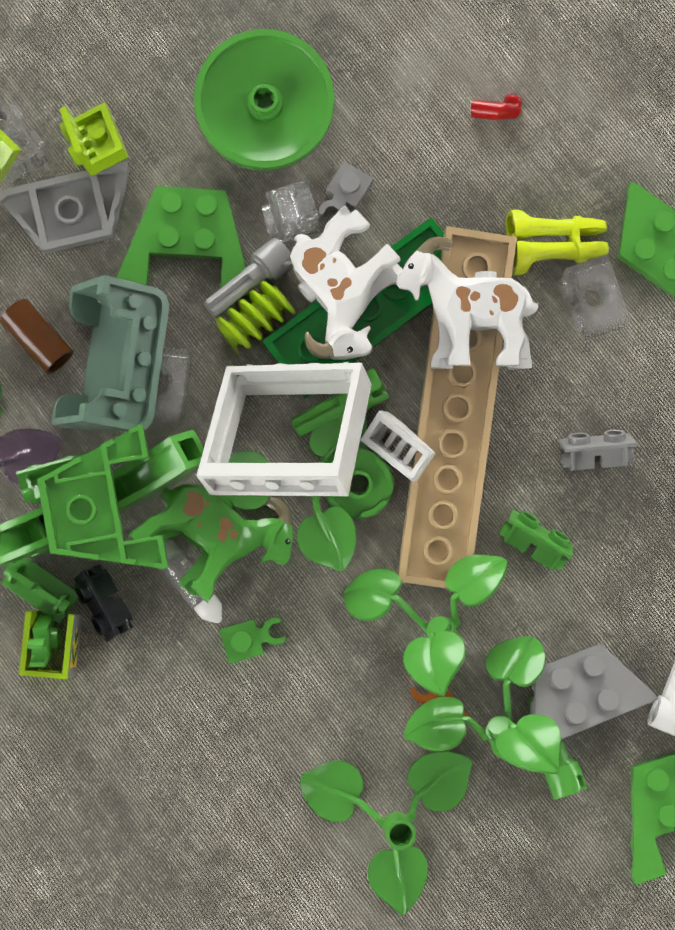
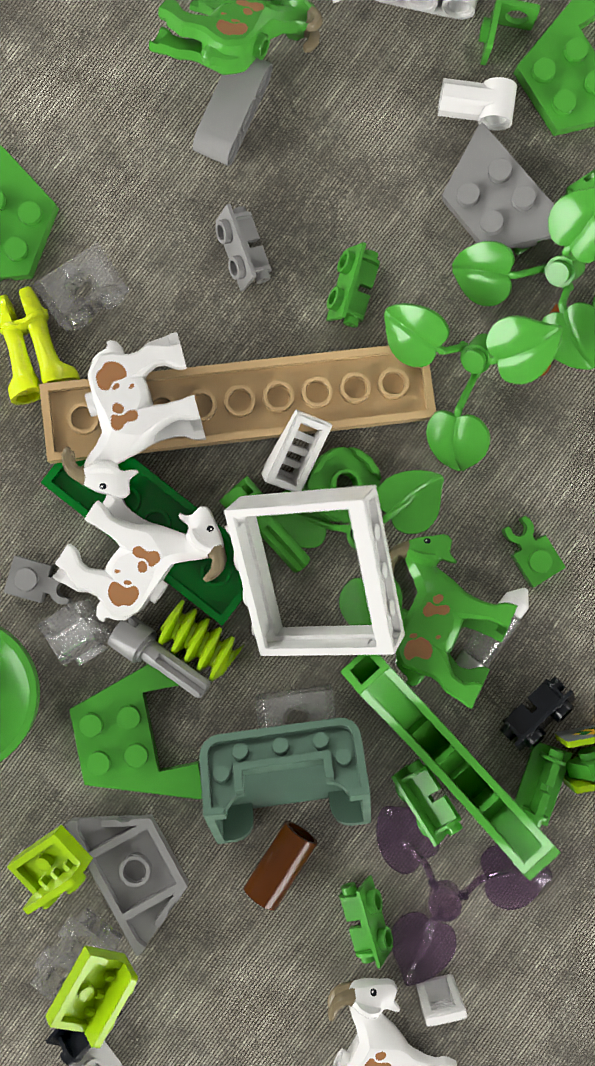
camera: 100 degrees left, 5 degrees up
(84, 509) = (461, 763): bright green wing -> none

